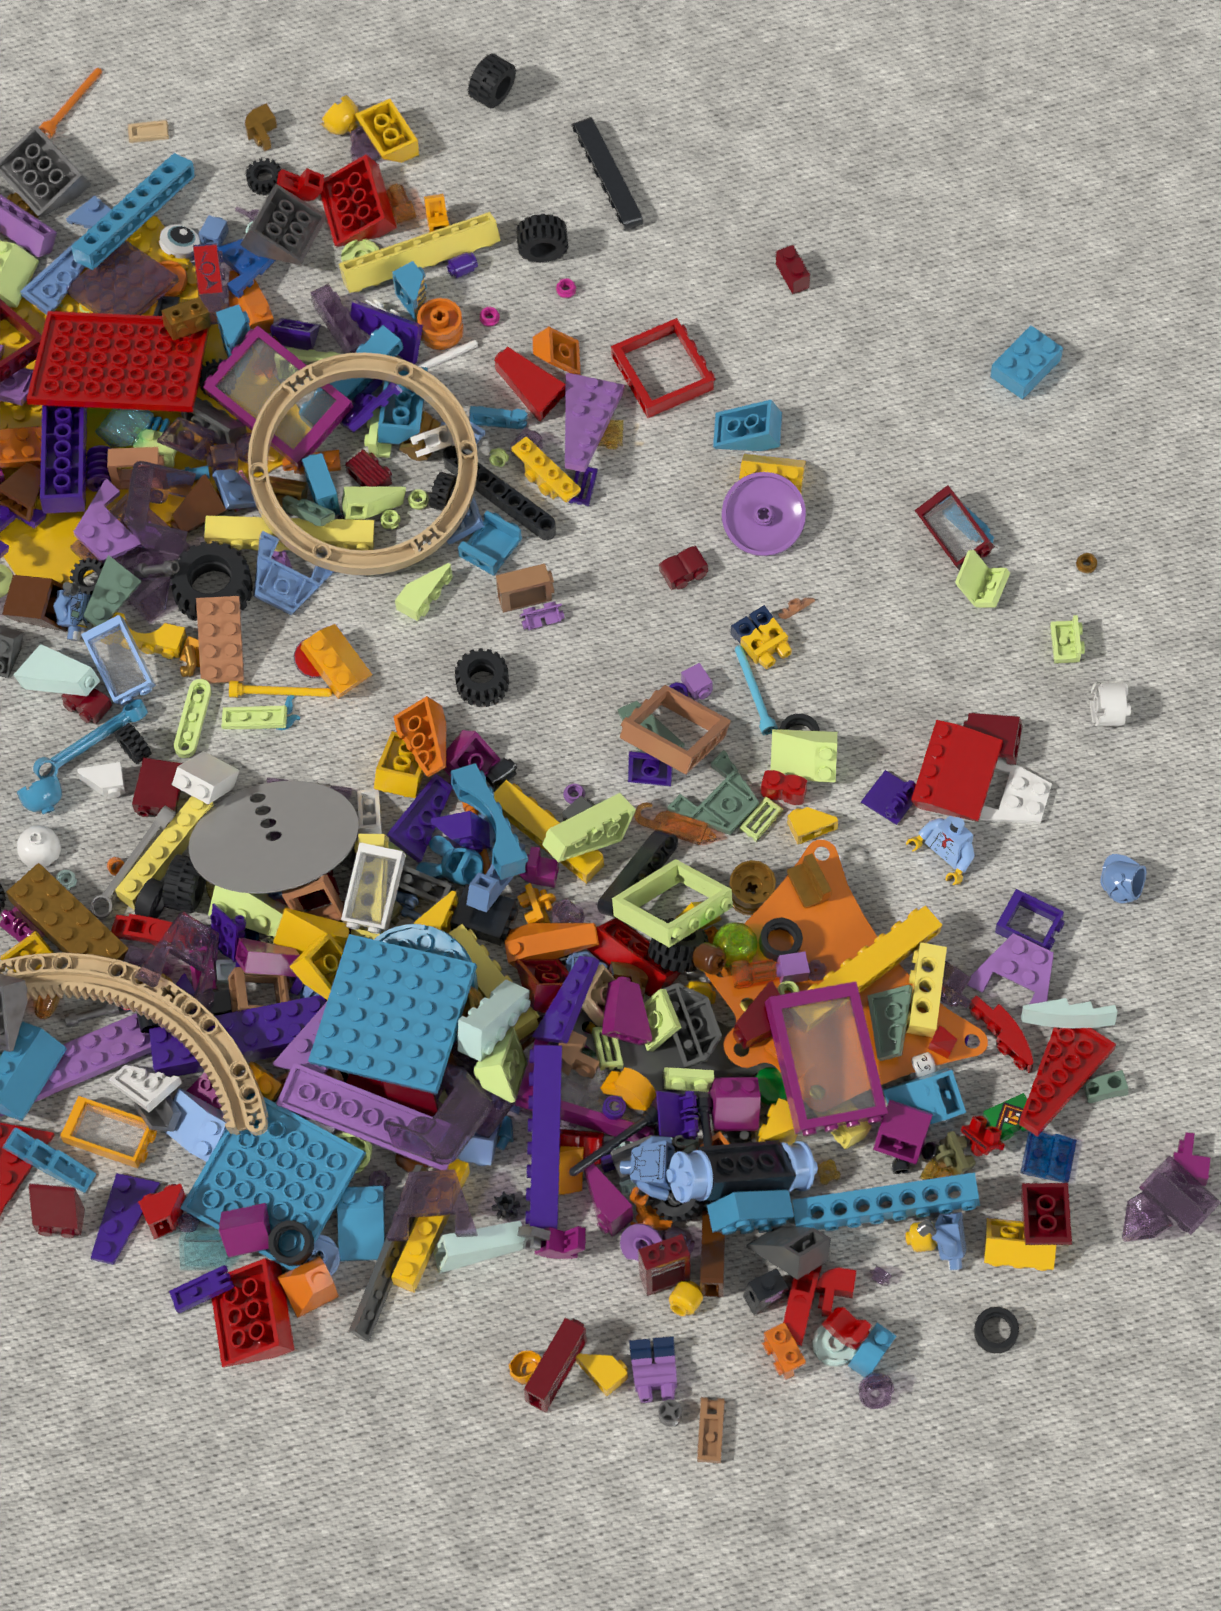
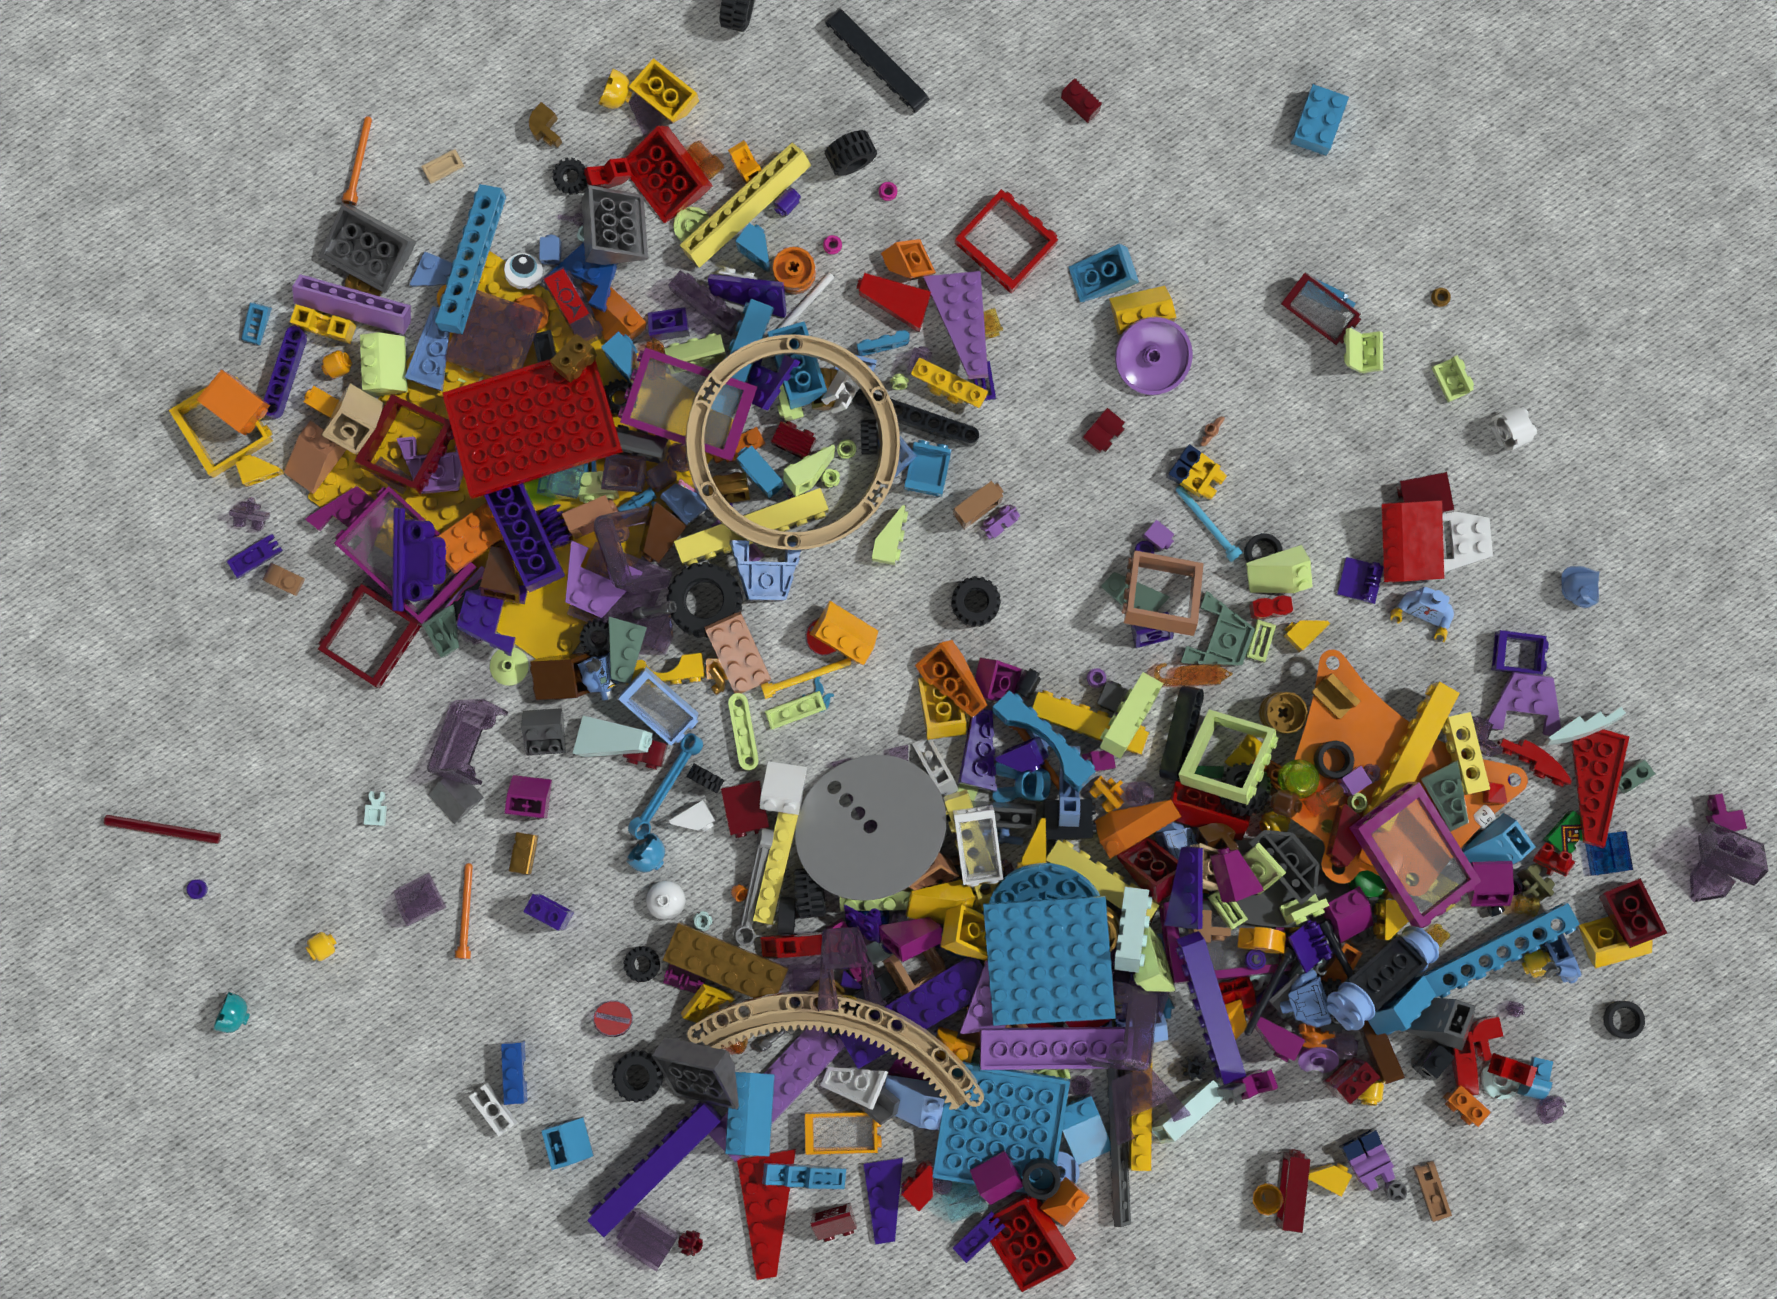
camera: 25 degrees left, 20 degrees up
(308, 510) = (761, 504): sand green hinge -> none

